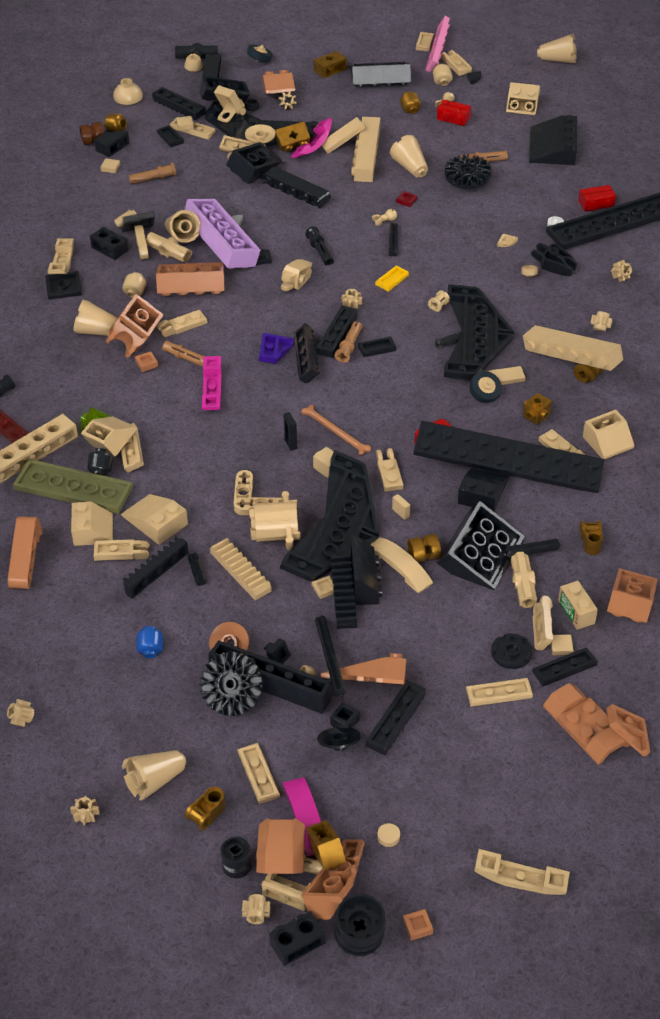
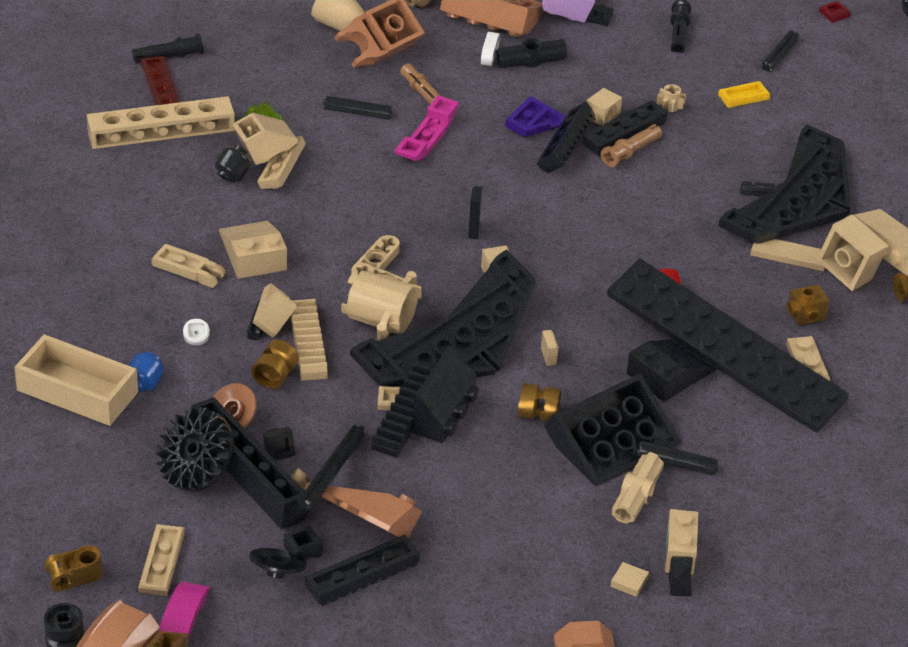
camera: 25 degrees right, 5 degrees down
(23, 552) = (87, 207): nougat beam -> none
(72, 485) = (187, 179): olive plate -> none
(90, 523) = (174, 222): tan slope -> none
(109, 669) = (76, 379): none -> tan piece
(146, 361) = (371, 79): nougat plate -> none
(151, 386) = (357, 107): none -> black axle
(152, 771) = (44, 503): tan cone -> none
(155, 567) = (211, 298): black gear -> none
(162, 596) = (196, 332): none -> white tile
(182, 323) = (445, 53): tan hinge -> none
(205, 557) = (273, 310): none -> tan slope
(210, 309) = (489, 49): none -> white beam
(234, 597) = (275, 364): none -> pearl gold wheel
(239, 301) = (531, 53): none -> black piece
(296, 274) = (622, 46): tan hinge -> none
(315, 320) = (605, 106): none -> tan brick
(361, 447) = (555, 266): nougat piece -> none
(376, 346) = (663, 163): black tile -> none
(389, 215) = (796, 22): tan arm -> none
(389, 471) = (568, 305): tan hinge -> none
(403, 563) = (502, 411): tan slope -> none
(437, 299) = (772, 136): tan bush -> none
(485, 387) = (762, 256): black wheel -> none
(499, 692) = (510, 597): tan tile -> none
(509, 656) = (561, 568): black tile -> none
(542, 362) = (852, 252): none -> tan brick
(542, 623) = (623, 544): tan hinge -> none
(564, 666) = (614, 605): black tile -> none
(590, 630) = (680, 576): none -> black slope
(591, 536) = (764, 476): pearl gold piece -> none
(608, 434) = (878, 368): tan slope -> none
(632, 595) = (762, 560): nougat slope -> none

